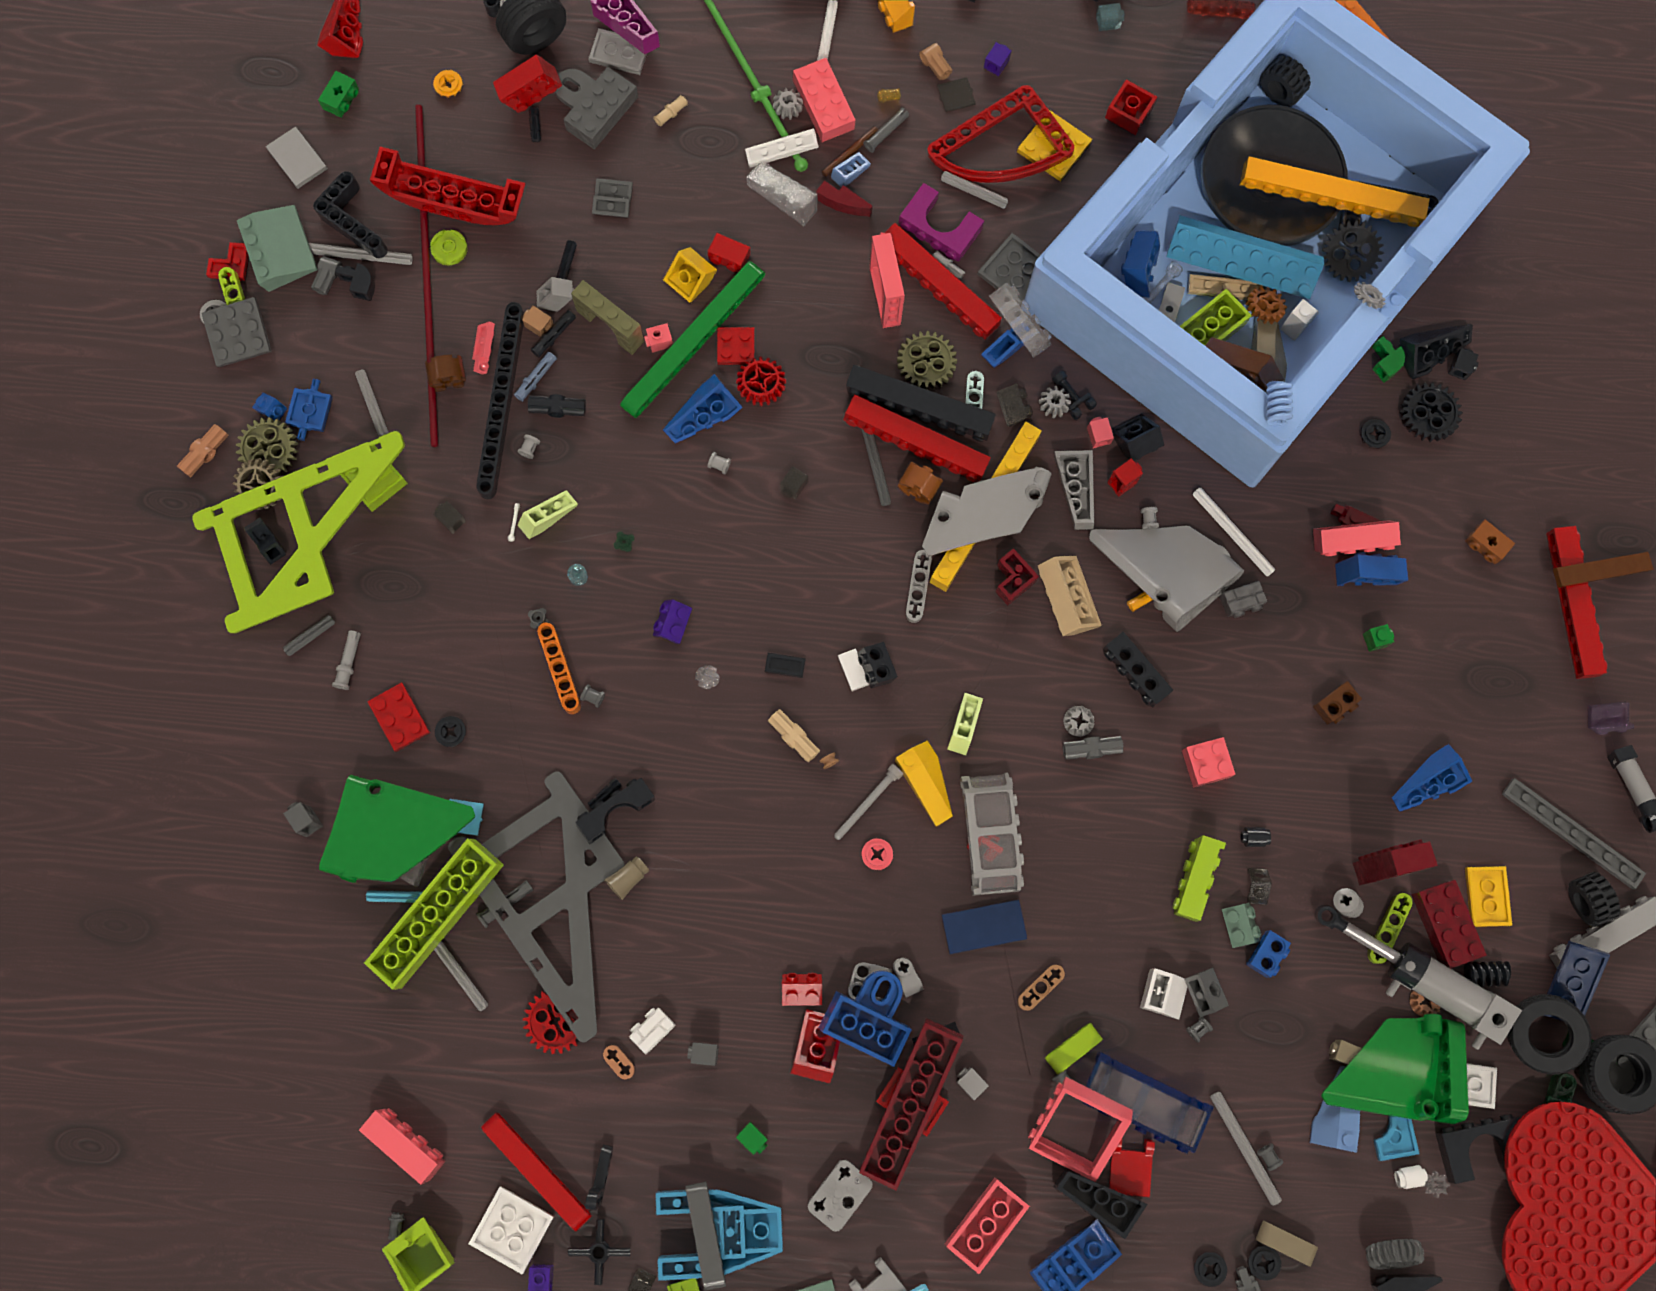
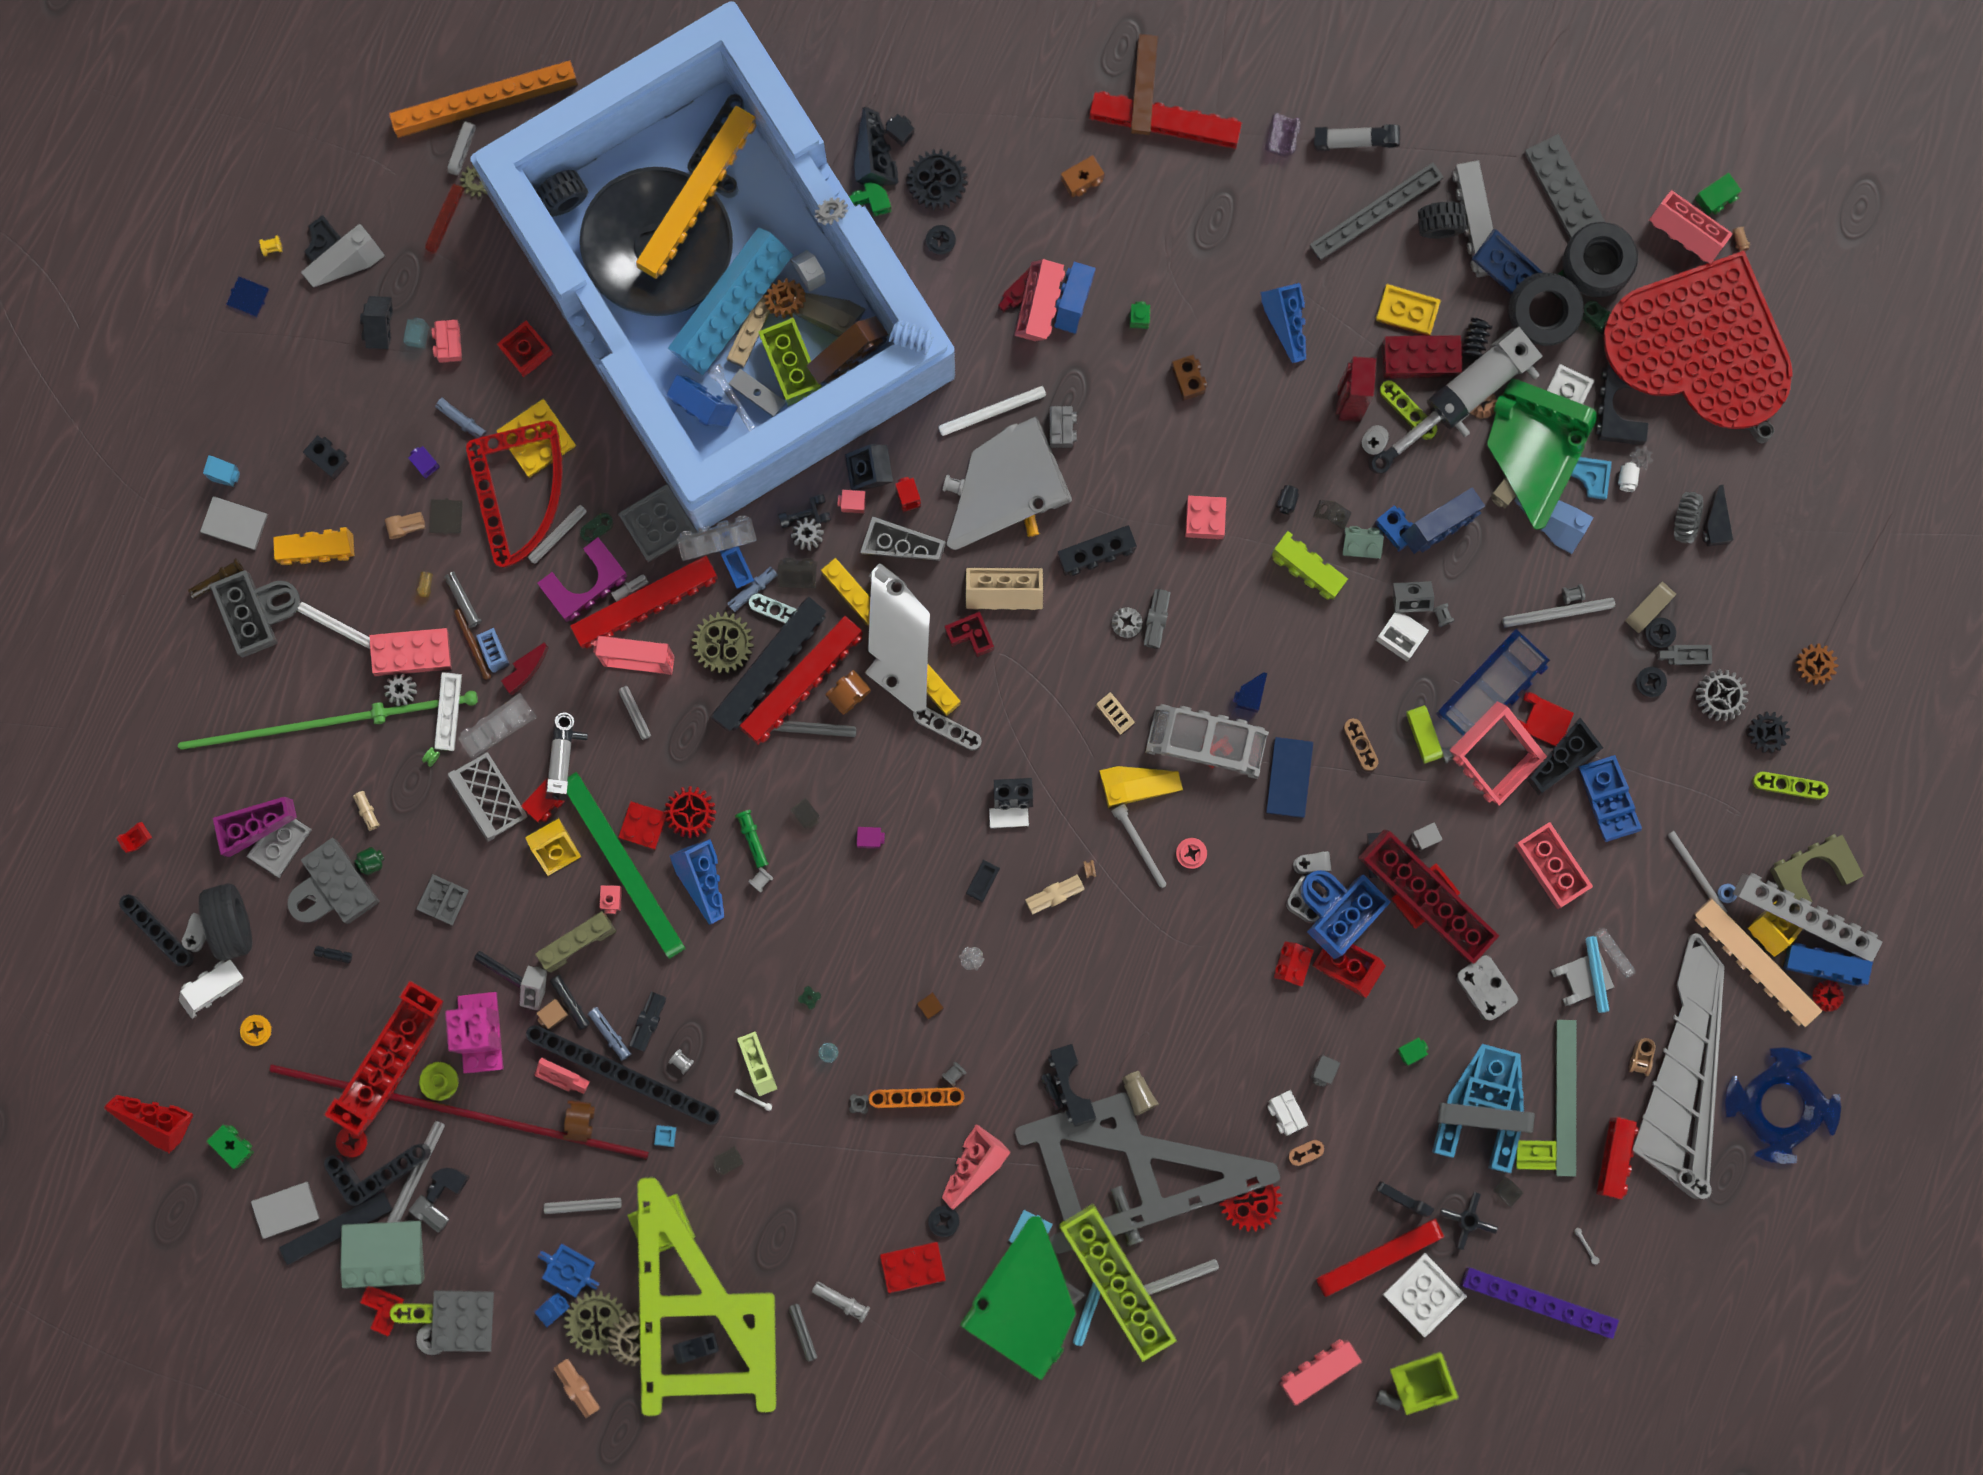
camera: 70 degrees left, 5 degrees up
(286, 197) = (332, 1229): none -> black tile
(302, 819) = (985, 1384): dark grey brick -> none
(364, 193) = (347, 1150): none -> red gear
(457, 455) = (665, 1136): none -> dark azure tile
(472, 32) = (209, 987): none -> white wedge
(500, 259) = (476, 1032): none -> dark pink brick
(518, 747) = (978, 1162): none -> coral wedge
(527, 83) = (295, 947): red brick -> none
(626, 126) = (369, 861): none -> dark green head
(651, 654) = (930, 1006): none -> reddish brown tile
(672, 621) = (904, 975): dark purple bracket -> none
(708, 191) = (472, 805): none -> light grey fence
(736, 147) = (431, 757): none -> bright green bush
(744, 254) = (560, 756): none -> piece
(761, 438) = (749, 829): none -> green pin
(791, 547) = (870, 837): none -> magenta brick
(836, 305) = (634, 712): none -> light grey axle
(965, 724) = (1096, 729): yellowish green slope -> none
(987, 371) = (753, 588): none -> sand blue pin
(993, 220) = (593, 524): none -> clear green beam
(994, 722) = (1104, 701): none -> tan slope
(1044, 84) = (466, 423): none -> sand blue pin
(1052, 862) = (1250, 694): none -> clear blue slope
(1113, 44) = (447, 341): none -> coral brick
(1294, 997) = (1443, 521): none -> dark blue brick
(1362, 236) = (749, 180): black gear -> none

